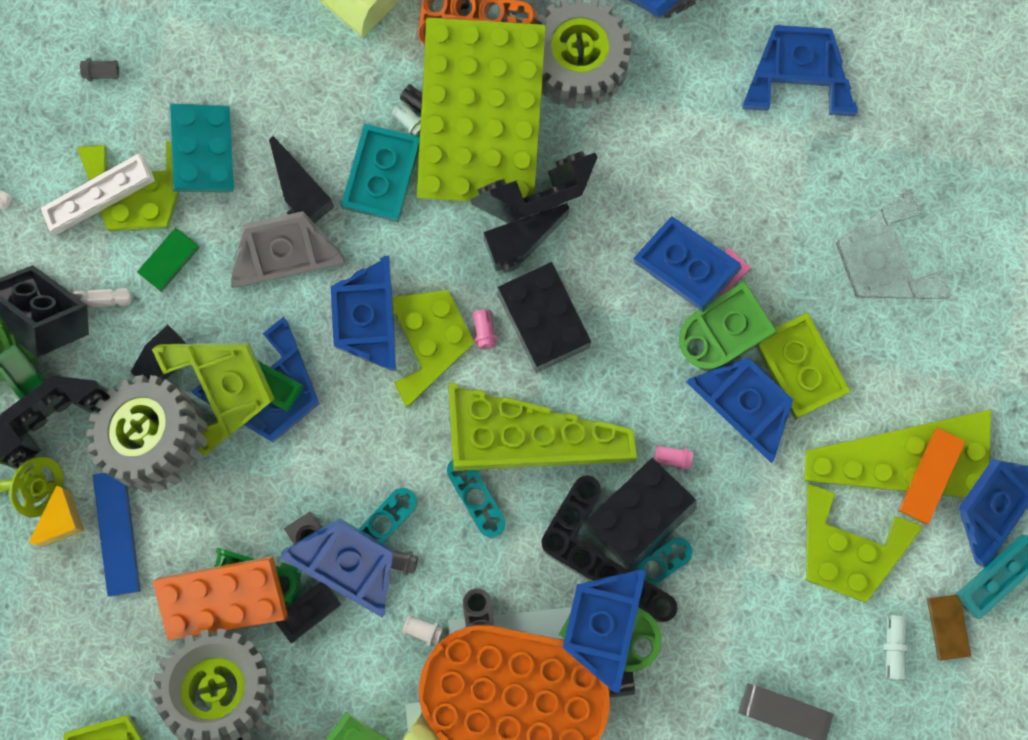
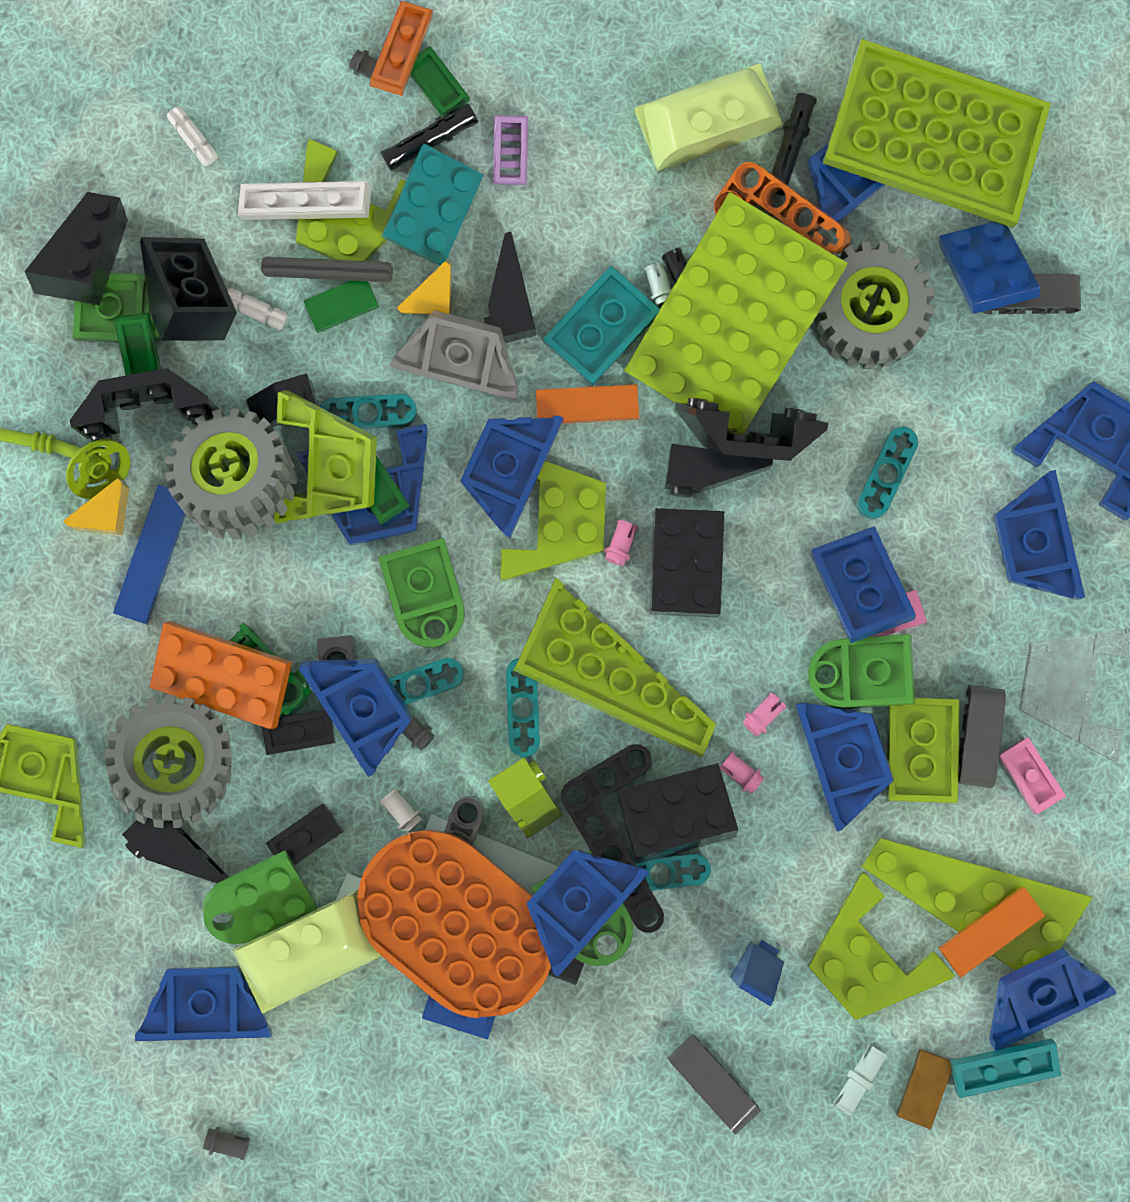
camera: 30 degrees right, 5 degrees up
(115, 42) = (401, 48): none -> orange tile
(142, 238) = (327, 269): none -> dark grey axle
(156, 56) = (438, 83): none -> green tile
(177, 91) = (441, 130): none -> black pin
(232, 55) = (510, 122): none -> lavender slope
(235, 214) = (432, 294): none -> yellow slope
(248, 315) = (392, 403): none -> teal beam
(349, 446) = (424, 590): none -> bright green plate
(356, 690) = (306, 834): none -> black plate
(403, 236) = (589, 403): none -> orange tile
(516, 563) = (525, 796): none -> lime wedge
(650, 151) = (890, 447): none -> teal beam
(666, 402) = (763, 715): none -> bright pink pin
(772, 603) = (759, 971): none -> blue slope
(800, 163) = (1039, 541): none -> blue wing
(840, 330) = (982, 736): none -> dark grey beam
(893, 341) = (1031, 775): none -> bright pink plate

